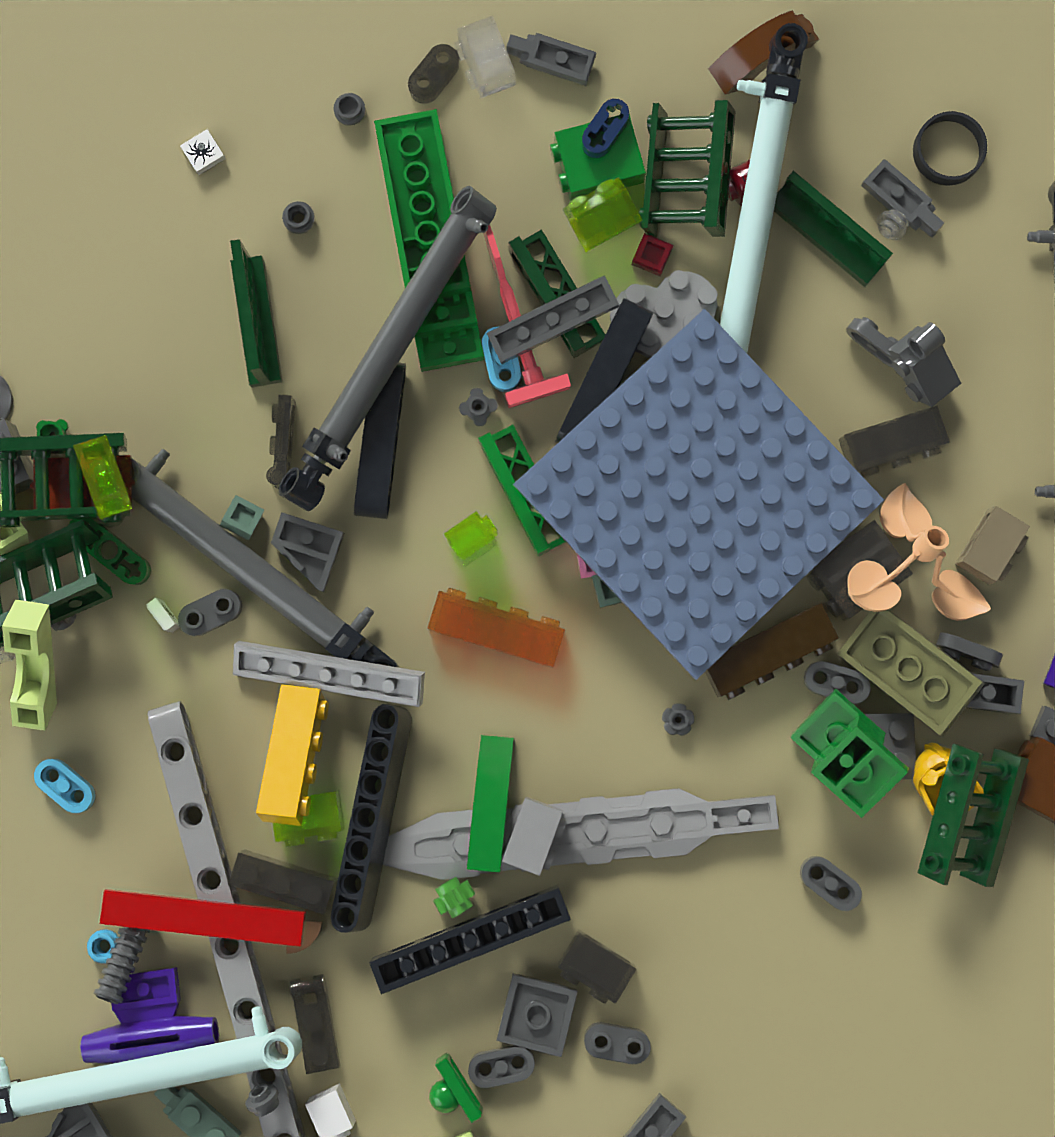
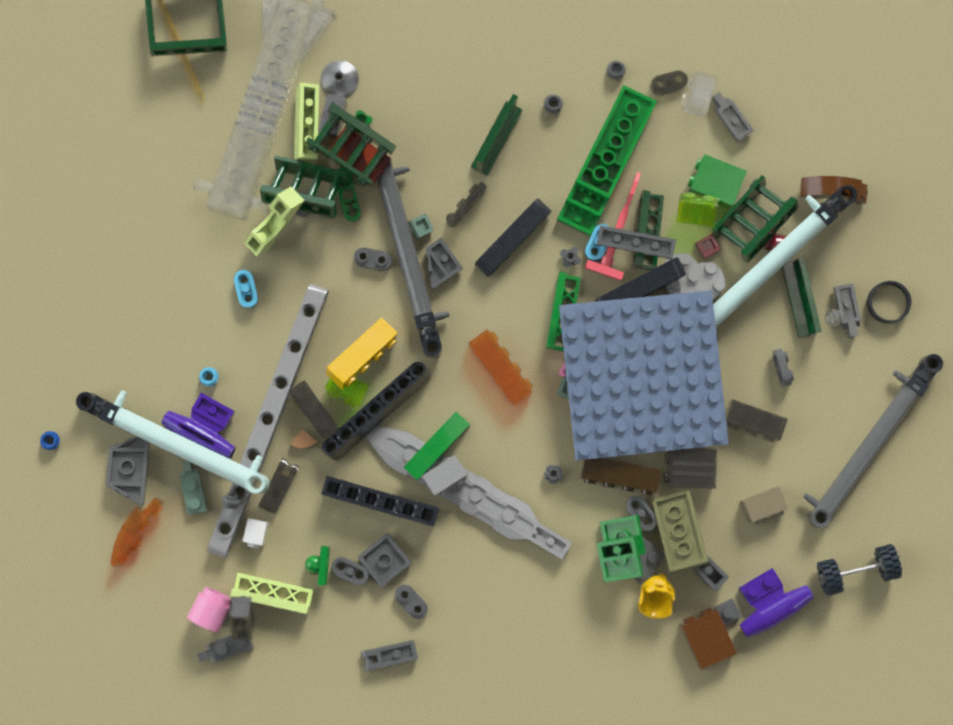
camera: 30 degrees right, 0 degrees up
(102, 477) = (372, 160): clear neon green brick -> none
(121, 964) = (216, 387): dark grey piece -> none
(163, 615) = (350, 243): white tile -> none
(202, 152) = (531, 39): white tile -> none
(202, 917) = (265, 397): red tile -> none
(329, 673) = (407, 329): light grey tile -> none
(454, 897) = (387, 476): bright green gear -> none
(469, 216) = (487, 222): dark grey piece -> none
(472, 538) = (521, 316): clear neon green brick -> none
(596, 967) = (428, 559): clear smoke brick -> none
(599, 124) = (730, 174): dark blue beam -> none
(830, 882) = (567, 603): dark grey plate -> none
(874, 589) = (734, 461): light nougat plant -> none
(924, 365) = (796, 395): dark grey hinge -> none
(982, 656) = (718, 551): dark grey plate -> none
(991, 822) = (663, 632): dark green fence -> none

